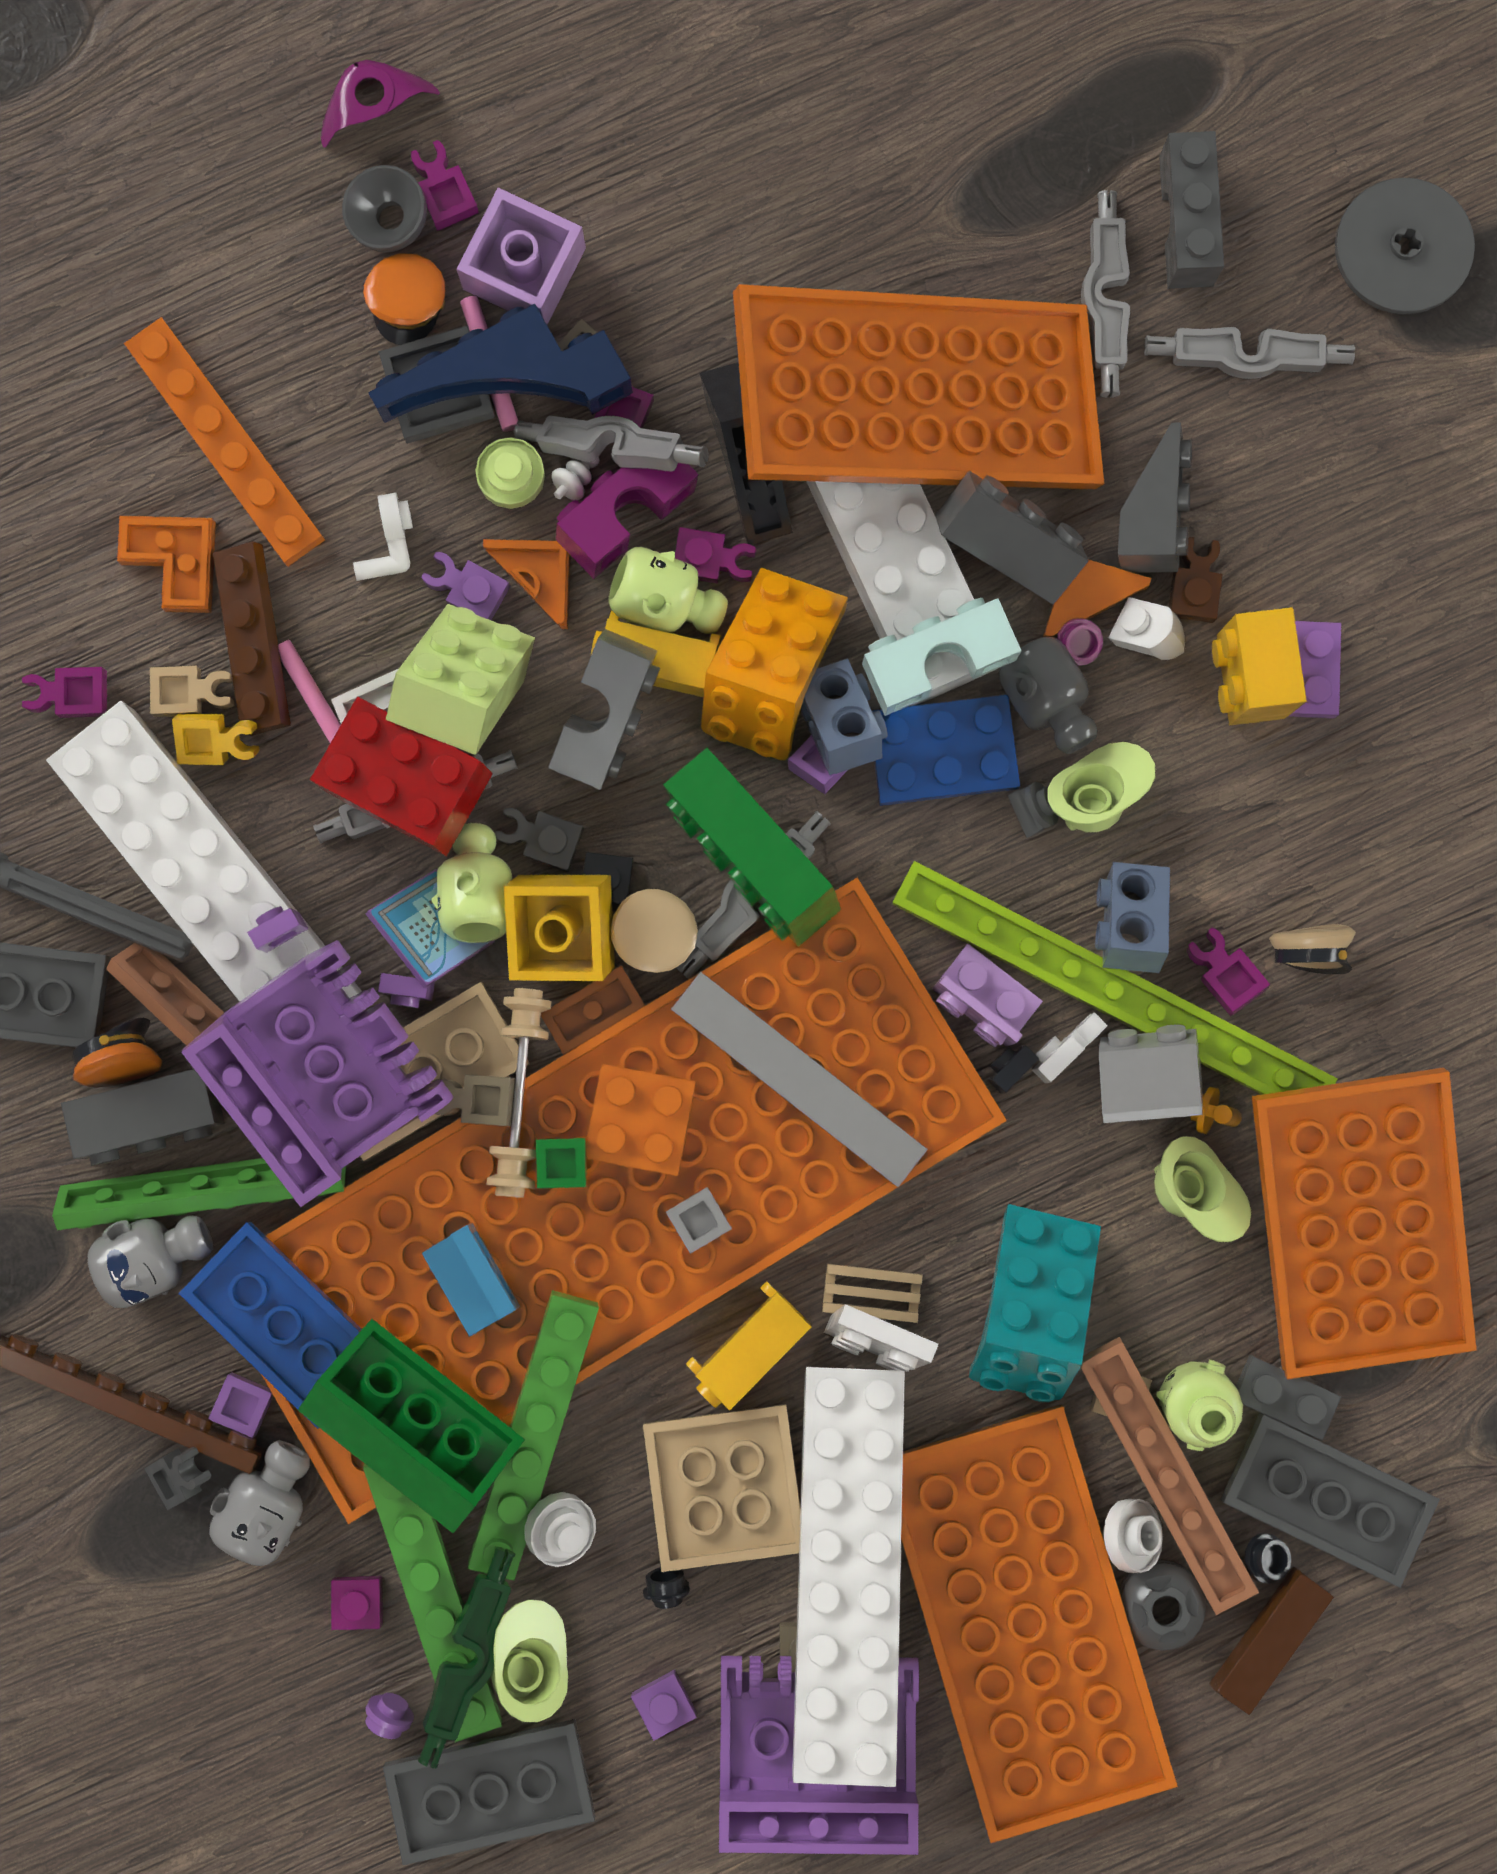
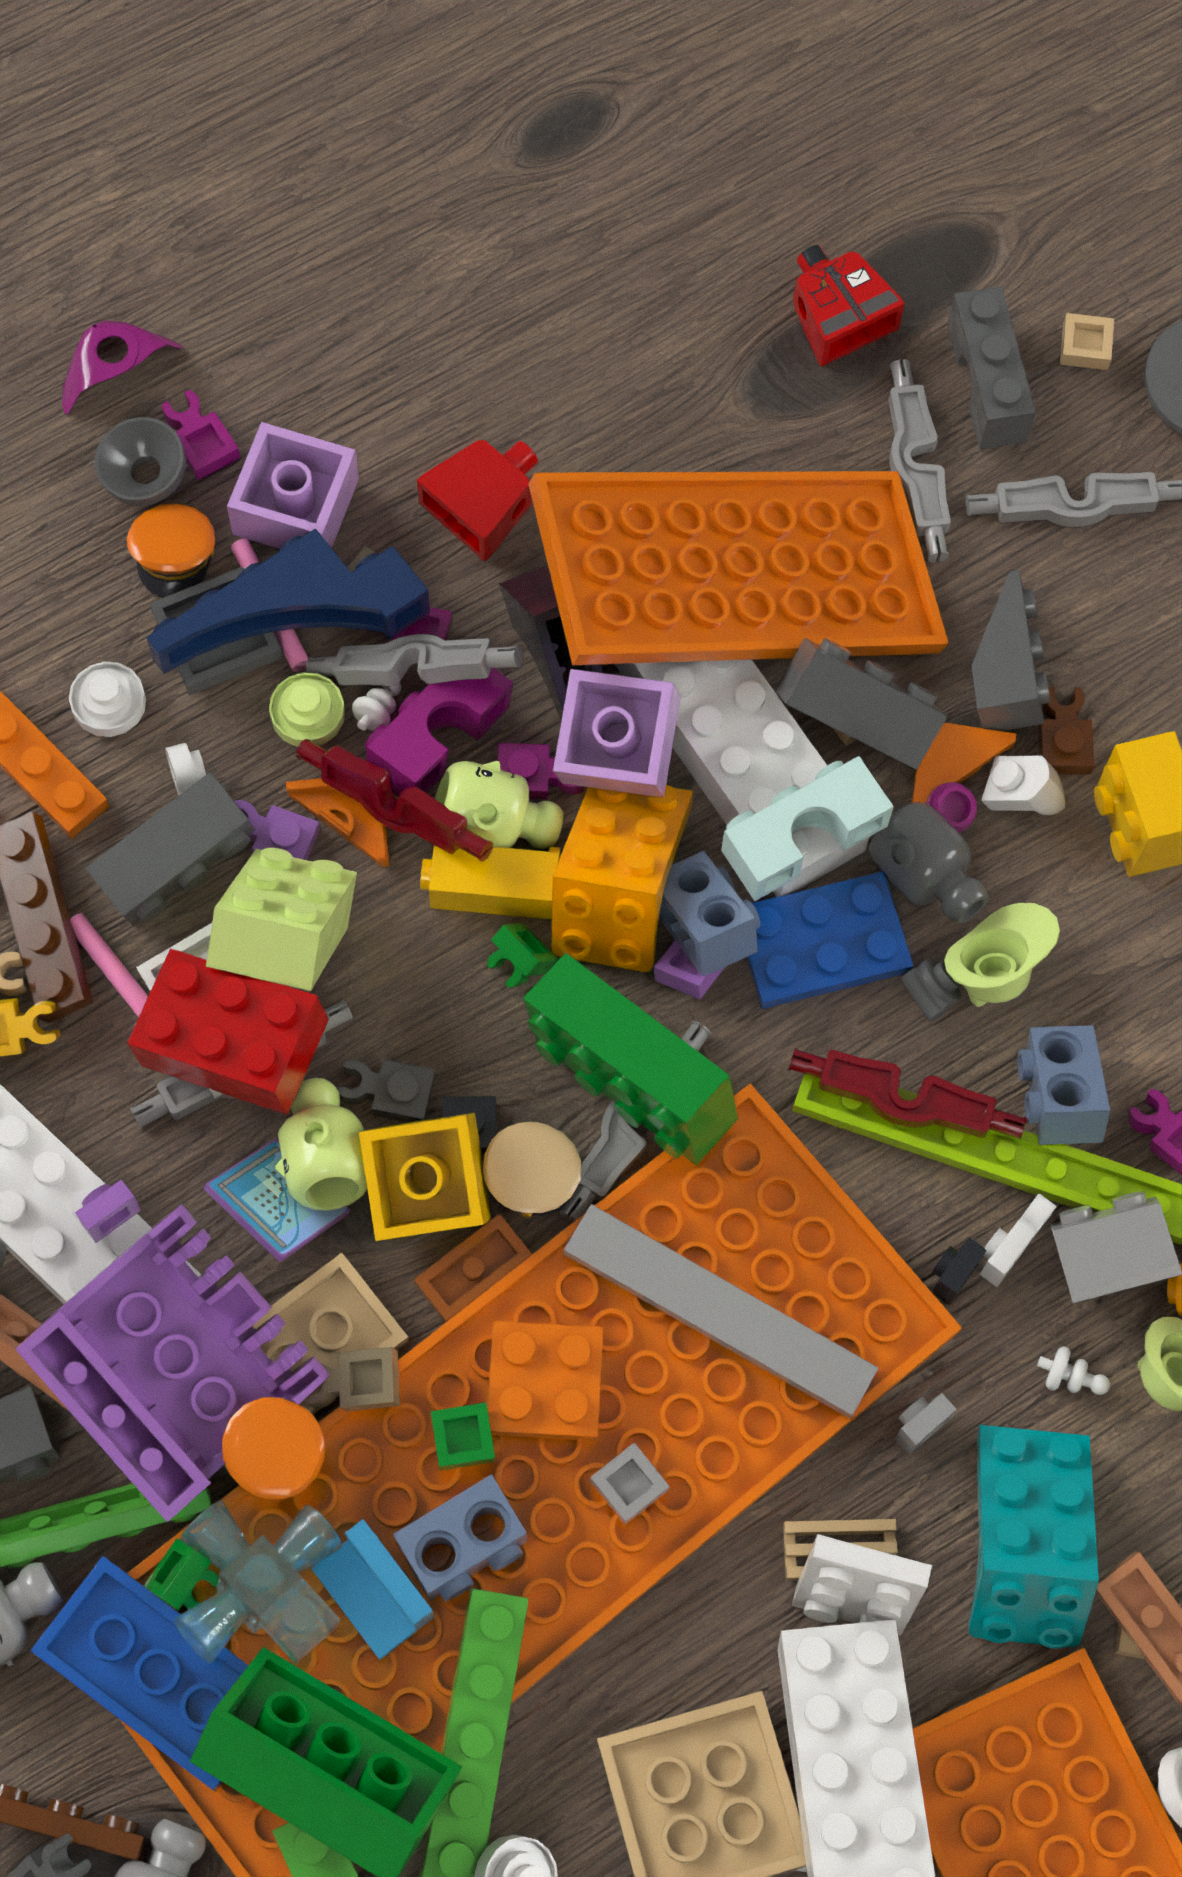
camera: 10 degrees left, 15 degrees down
(241, 1405) = (115, 1784): medium lavender plate -> none
(309, 1246) = (179, 1574): none -> green tile
(331, 439) = (107, 699): none -> white plate
(373, 595) = (172, 850): none -> dark grey brick
(374, 1266) = (260, 1584): none -> clear light blue brick
(398, 1153) = (273, 1448): none -> orange piece
(404, 990) = (260, 1269): medium lavender plate -> none
(525, 1026) = (405, 1439): tan axle -> none
(545, 1238) = (452, 1526): none -> sand blue brick
(585, 588) = (411, 813): none -> dark red piece
(620, 672) = (437, 982): dark grey arch -> none
(674, 728) = (525, 952): none -> green tile
(694, 278) = (479, 493): none -> red torso
(750, 1350) = (710, 1632): yellow brick -> none
(783, 541) = (617, 733): none -> lavender brick
(960, 1195) = (923, 1420): none -> light grey plate
(987, 997) = (913, 1197): lavender bracket -> none
(1016, 919) = (936, 1100): none -> dark red piece
(1062, 125) = (843, 303): none -> red torso
(1098, 1171) = (1075, 1375): none -> white hair
(1288, 193) = (1087, 341): none -> tan plate

